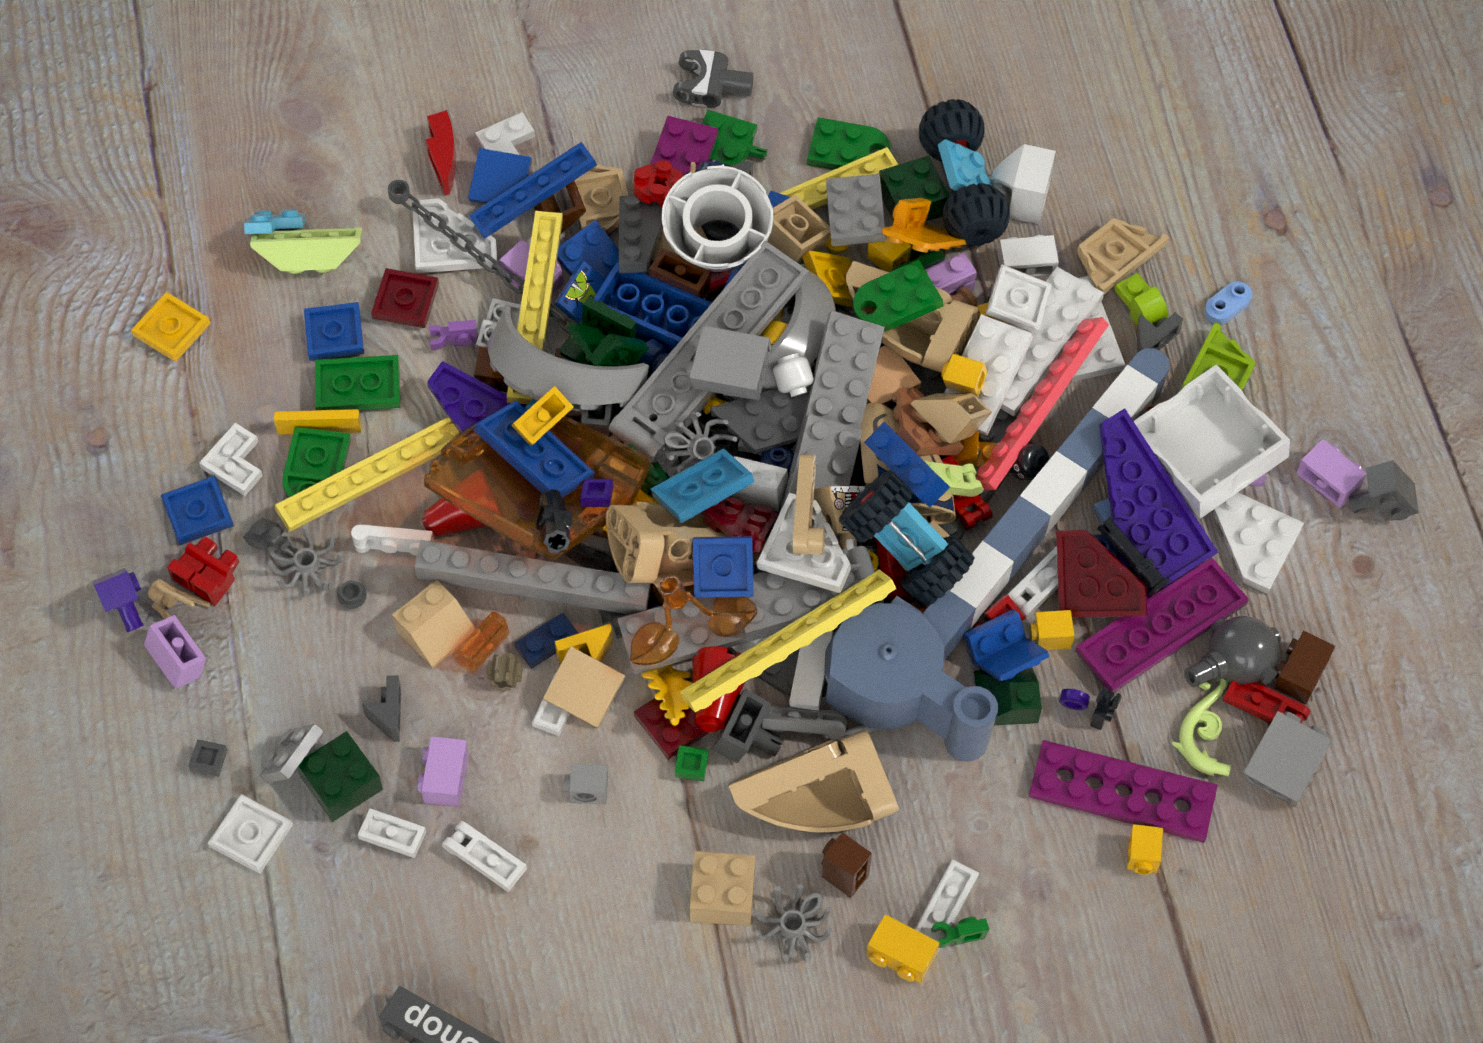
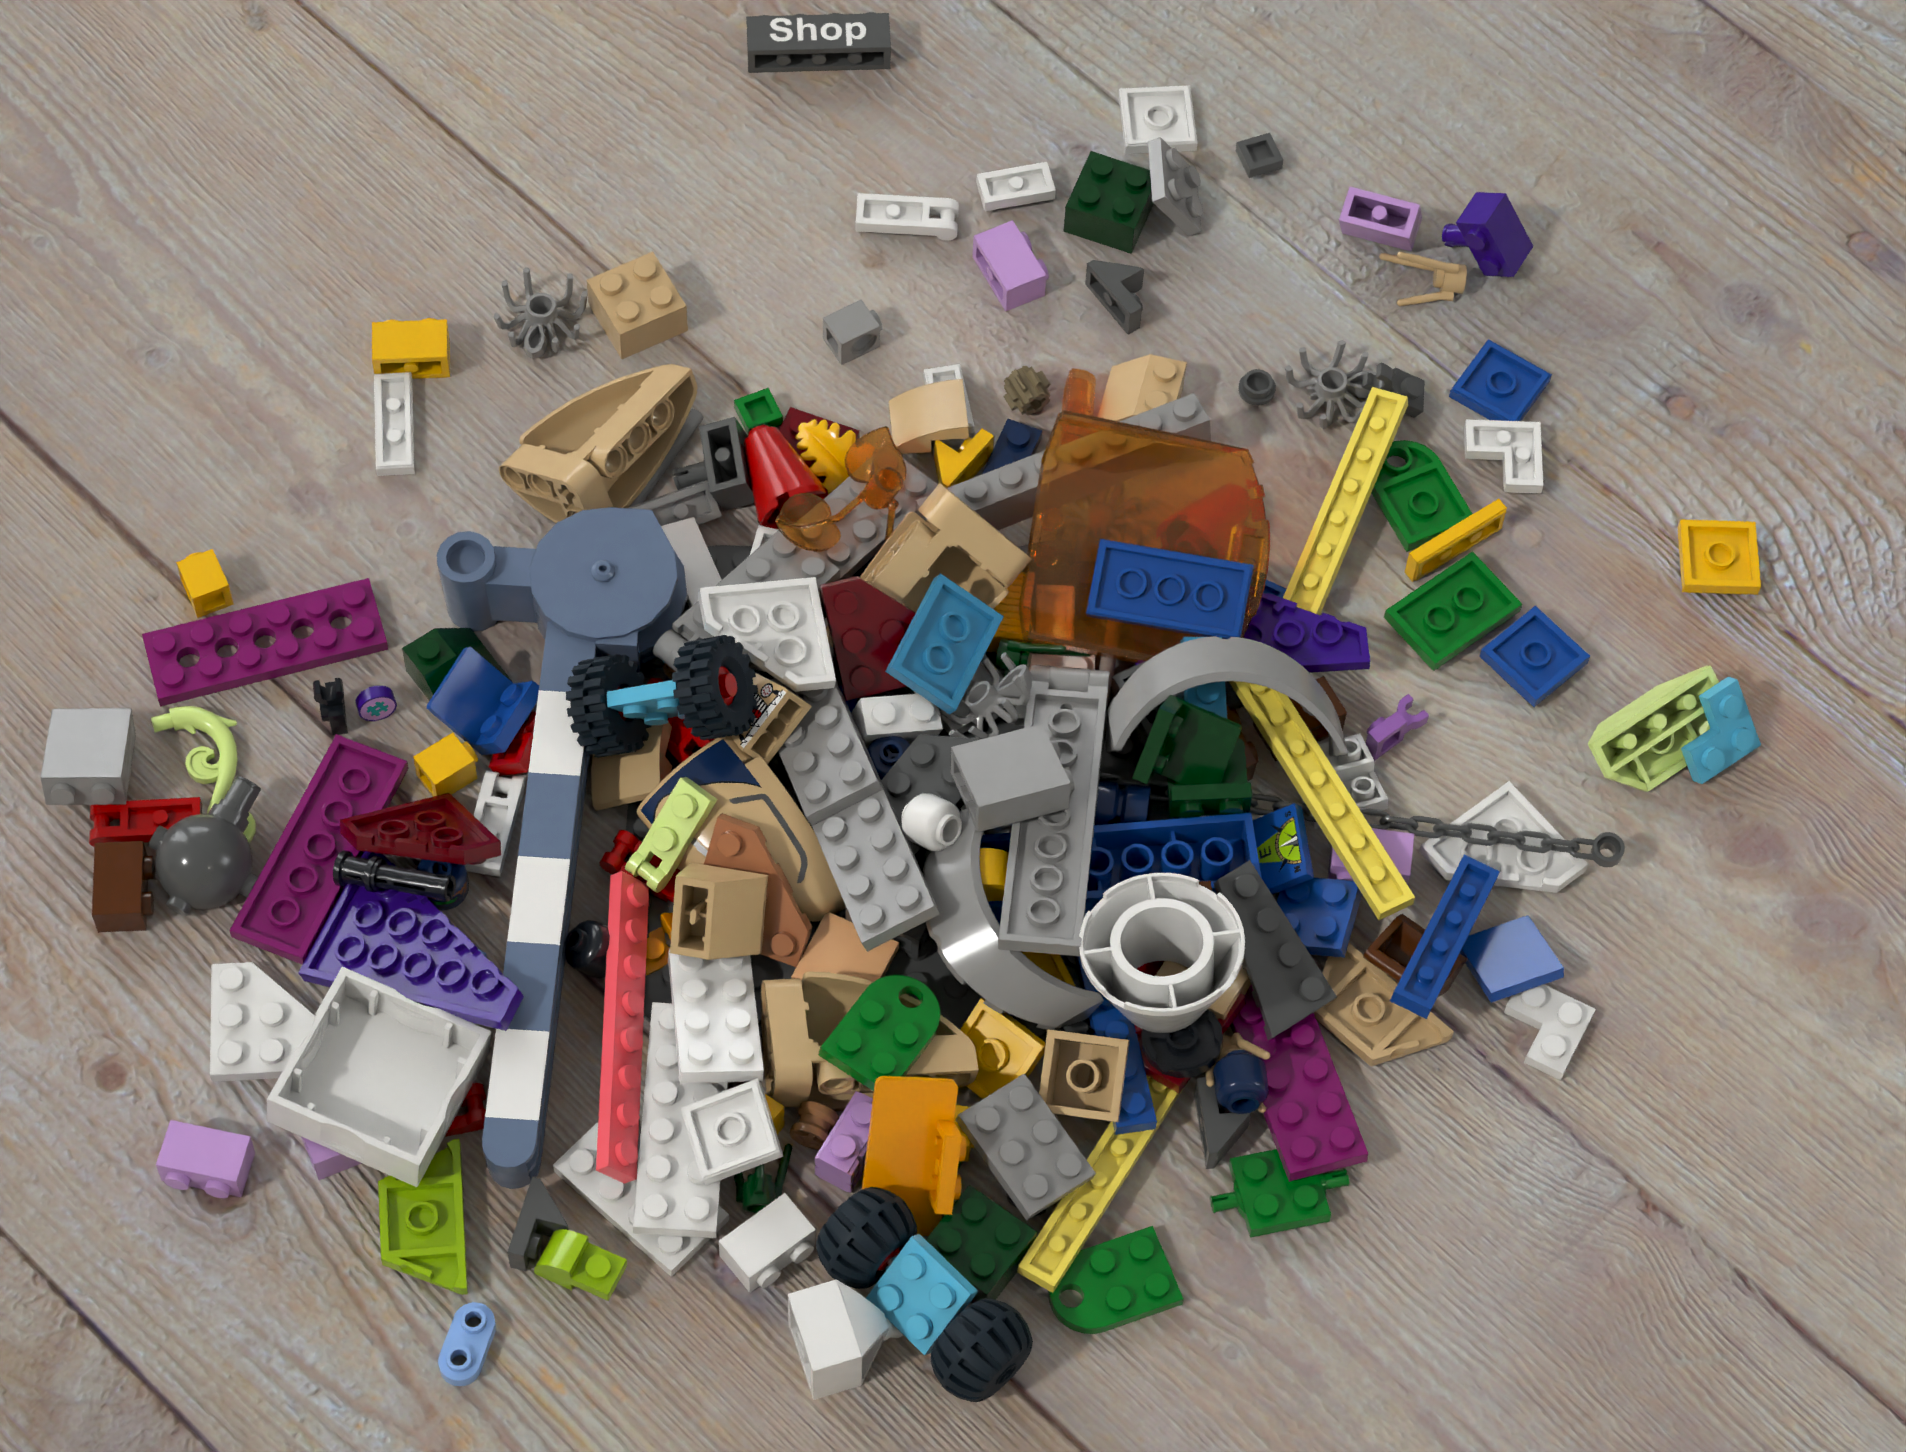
camera: 145 degrees right, 0 degrees up
(202, 572) = (1429, 320): red hips -> none
(388, 539) = (1280, 452): white plate -> none
(405, 298) = (1489, 743): dark red plate -> none
(442, 149) = (1611, 955): red slope -> none
(542, 416) = (1184, 608): yellow slope -> none
(554, 521) = (1071, 487): black piece -> none
(596, 493) = (1062, 584): dark purple tile -> none
(655, 181) = (1317, 1020): red plate -> none
(712, 79) = (1361, 1270): dark grey connector -> none
(723, 566) = (849, 548): blue plate -> none
(787, 640) = (721, 524): light yellow plate -> none
(806, 539) = (776, 613): tan beam -> none
(845, 864) = (520, 381): reddish brown brick -> none
(907, 464) = (715, 771): blue brick -> none
(964, 375) = (732, 972): yellow brick -> none
(966, 931) = (353, 396): green plate -> none
(1117, 252) = (654, 1323): tan wing -> none
(1389, 491) = (113, 1154): dark grey brick -> none

